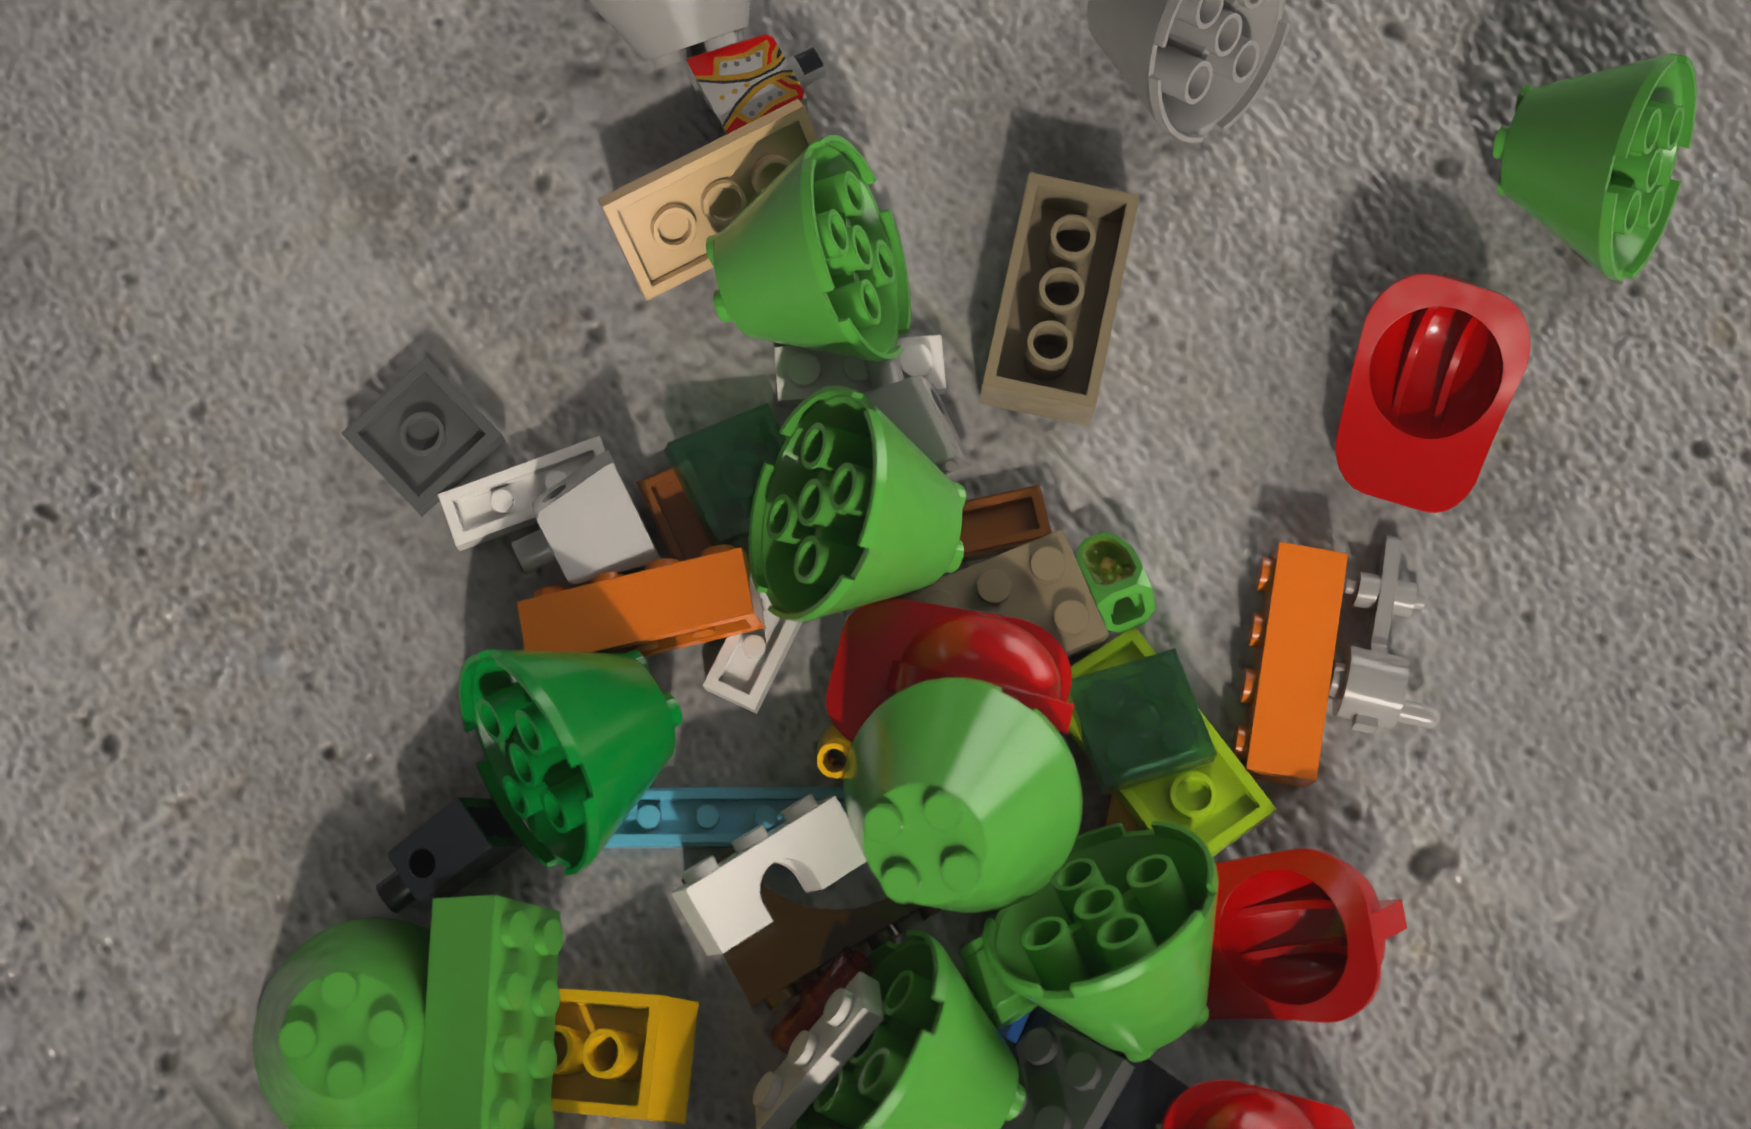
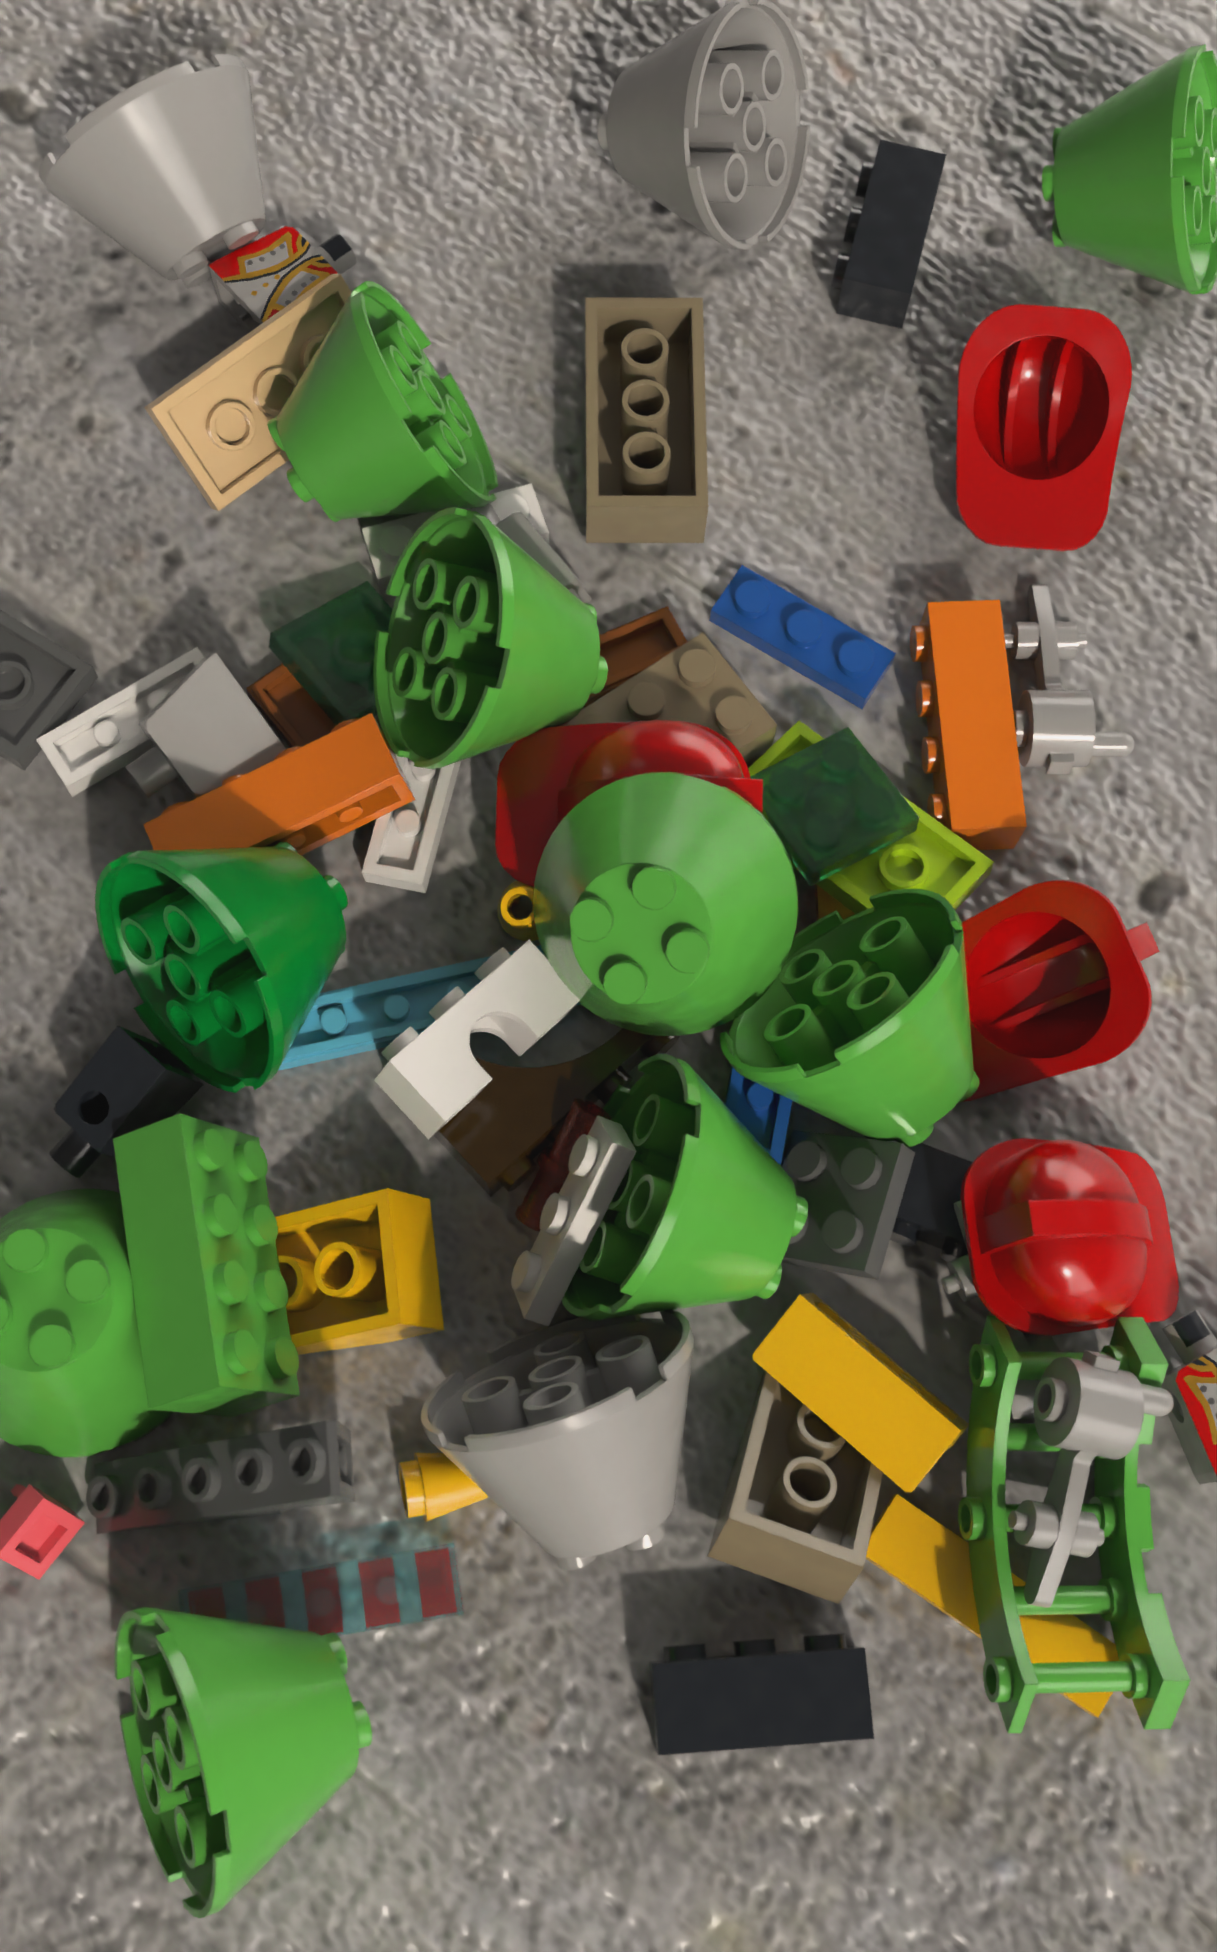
camera: 15 degrees left, 5 degrees down
(997, 999) = (756, 1106): bright green cone -> none
(1116, 581) = (774, 677): bright green rock -> none
(1160, 540) = (802, 637): none -> blue plate
(1339, 150) = (887, 233): none -> black brick

